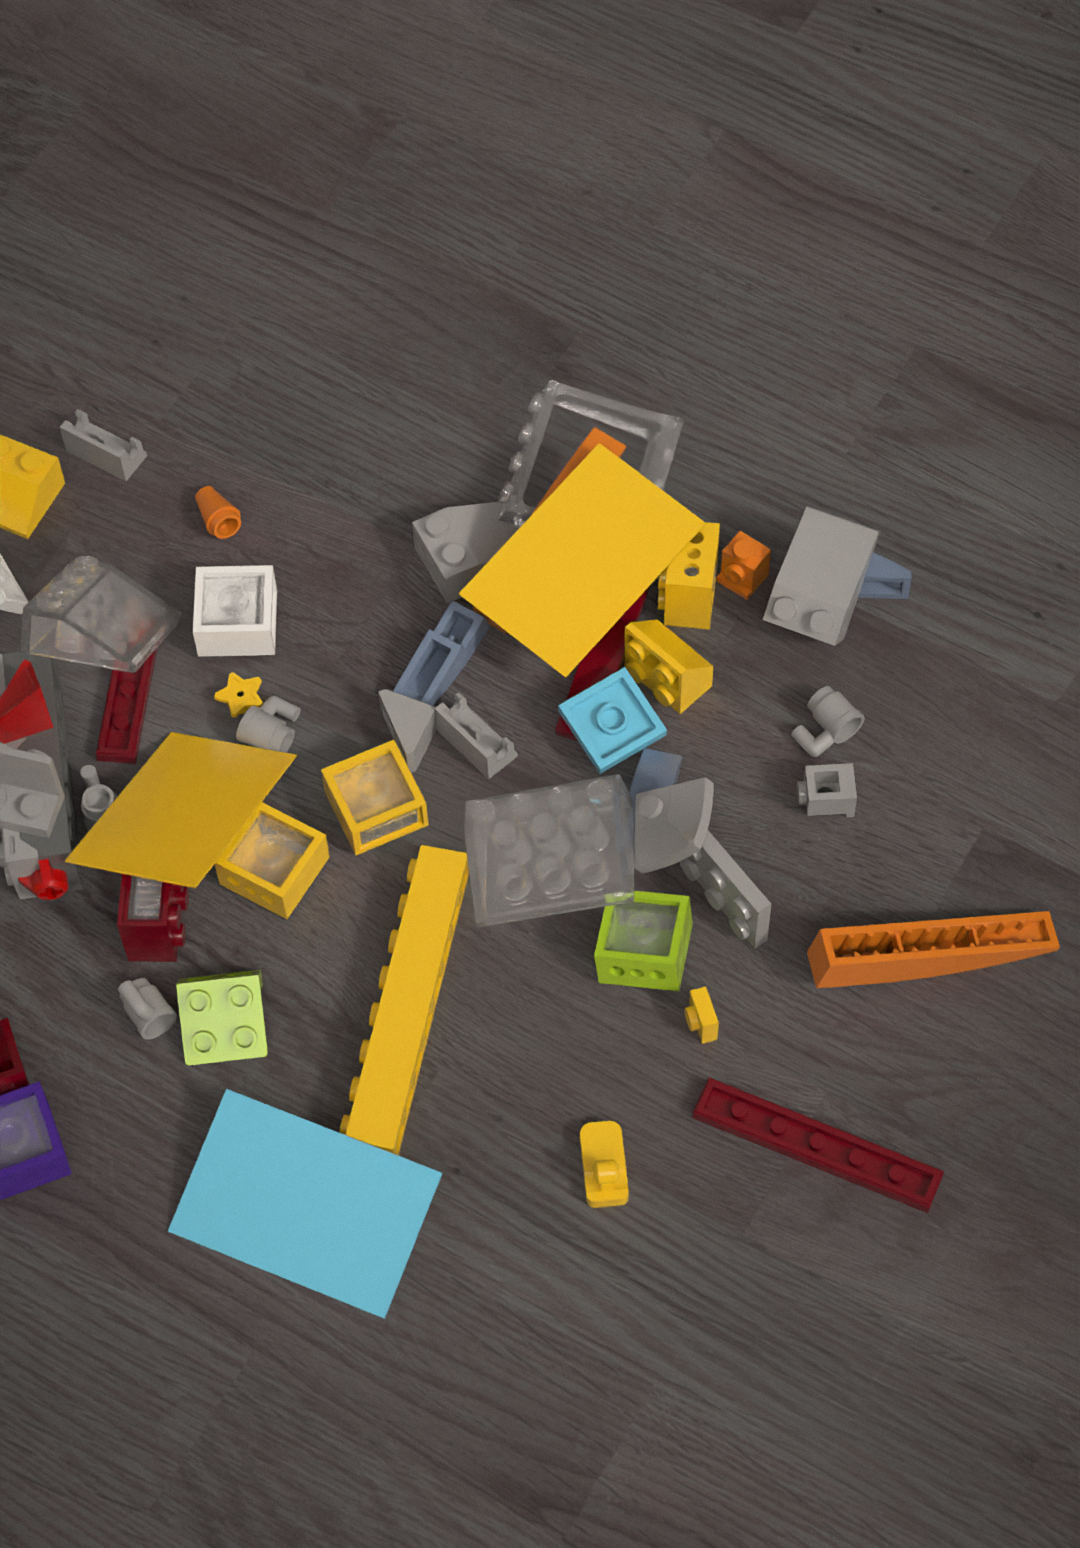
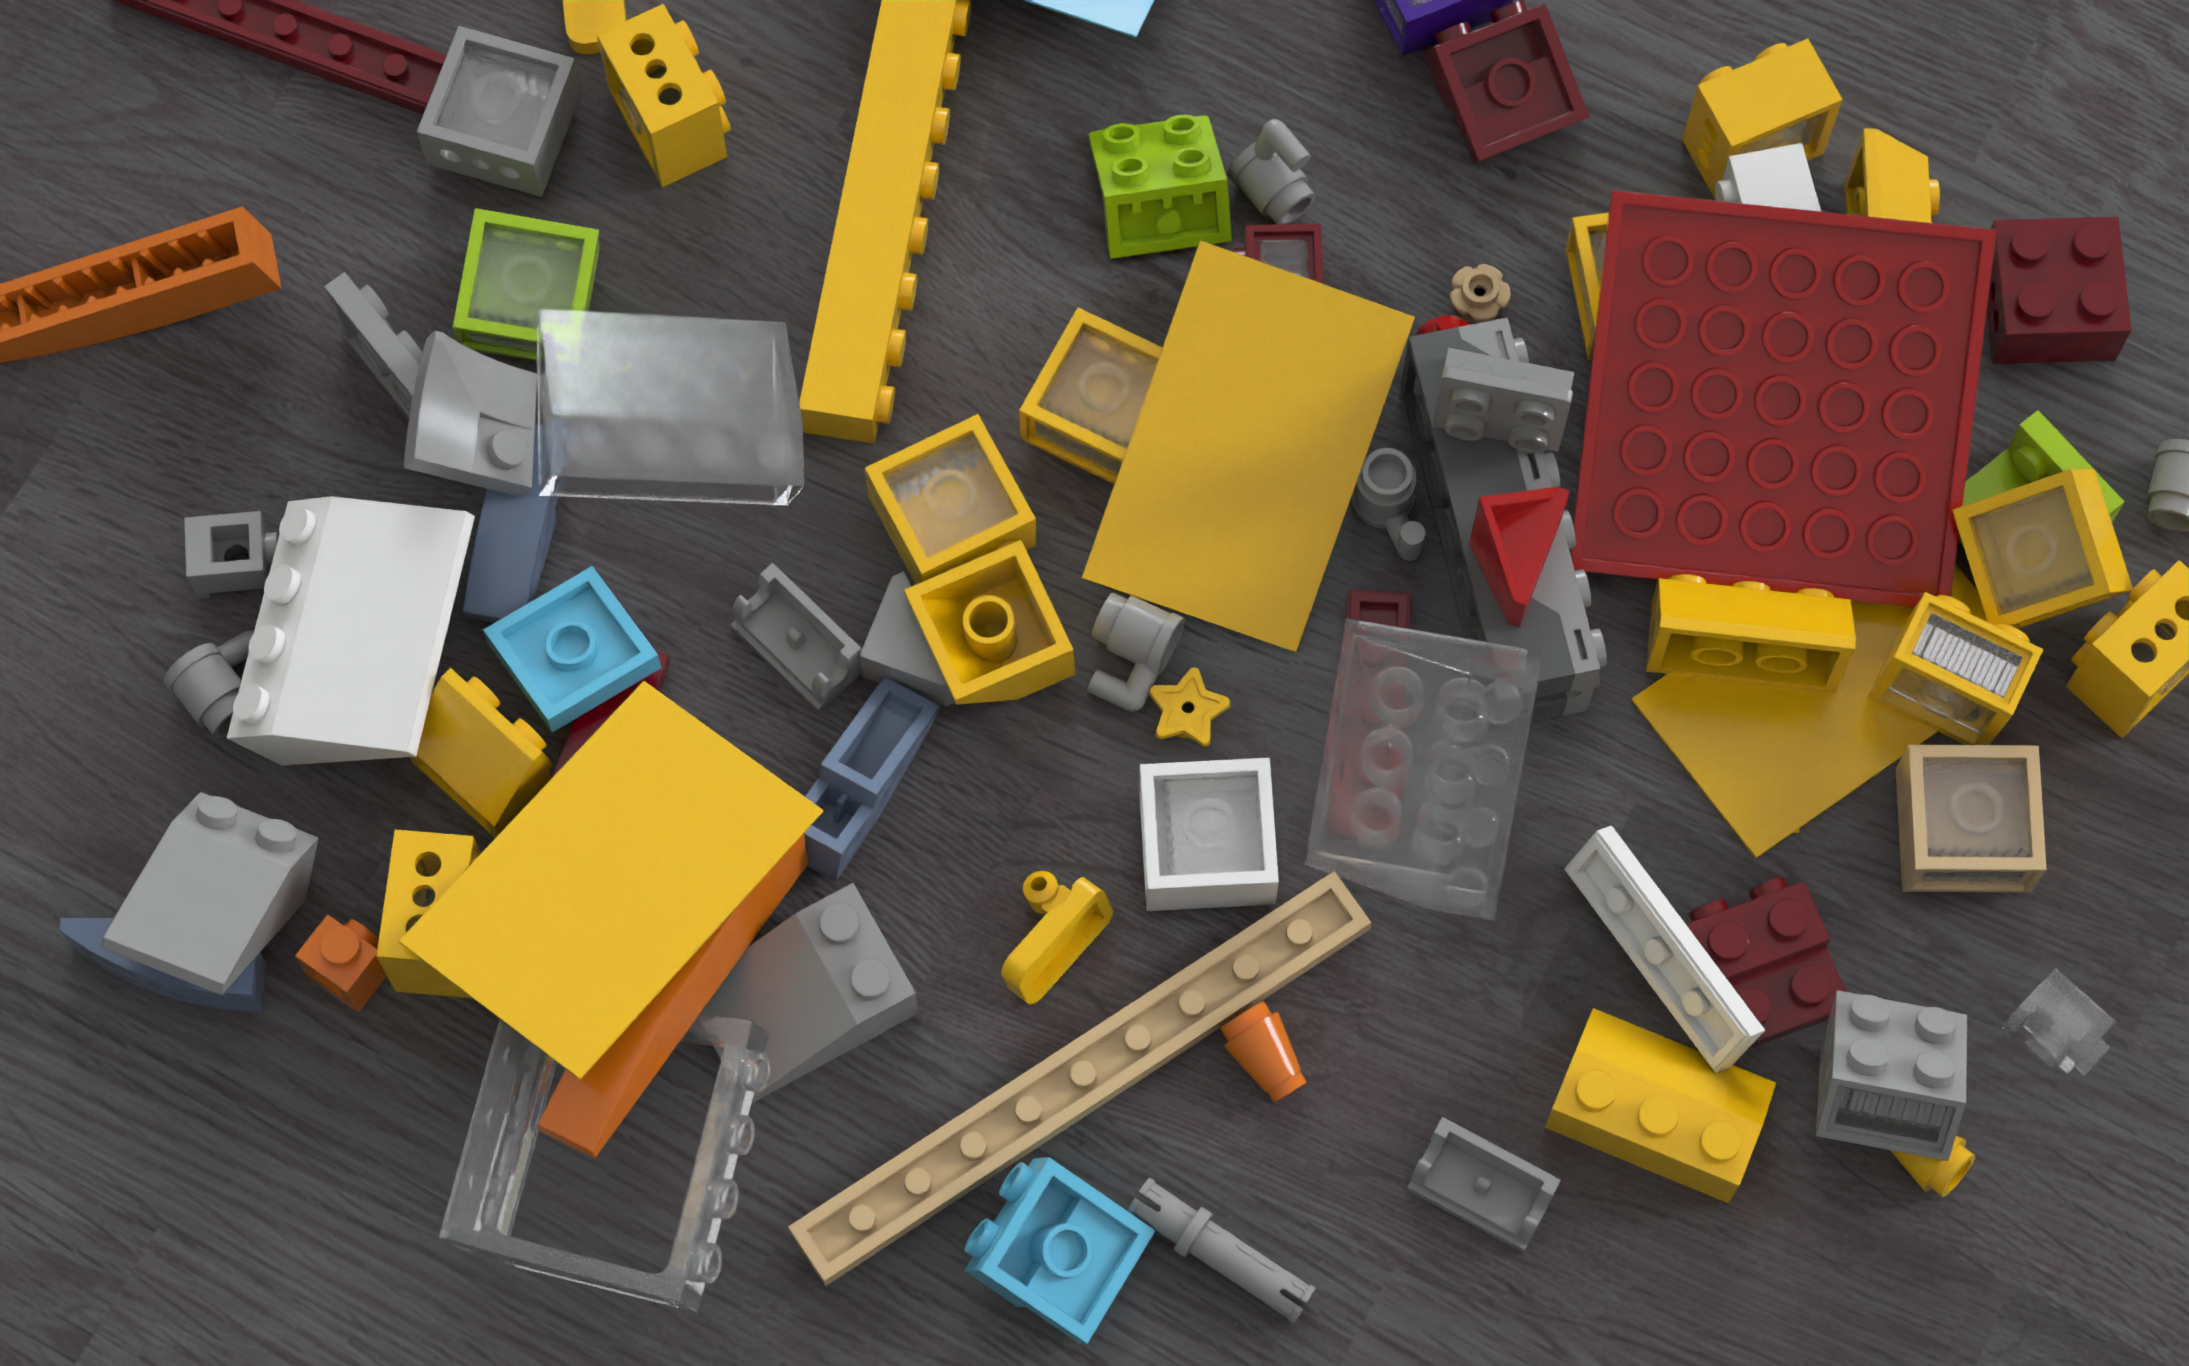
camera: 175 degrees right, 10 degrees up
(25, 946) = (1474, 307): none -> tan plate
(265, 426) = (1220, 1250): none -> light grey pin
(320, 576) = (1060, 937): none -> yellow piece
(322, 501) = (1078, 1078): none -> tan plate
(344, 417) = (1057, 1247): none -> medium azure plate
(352, 716) = (993, 628): none -> yellow slope
(551, 1059) = (664, 94): none -> yellow piece
(663, 1059) = (499, 111): none -> piece
(701, 1015) = (445, 192): yellow plate -> none
(746, 723) = (350, 631): none -> white slope

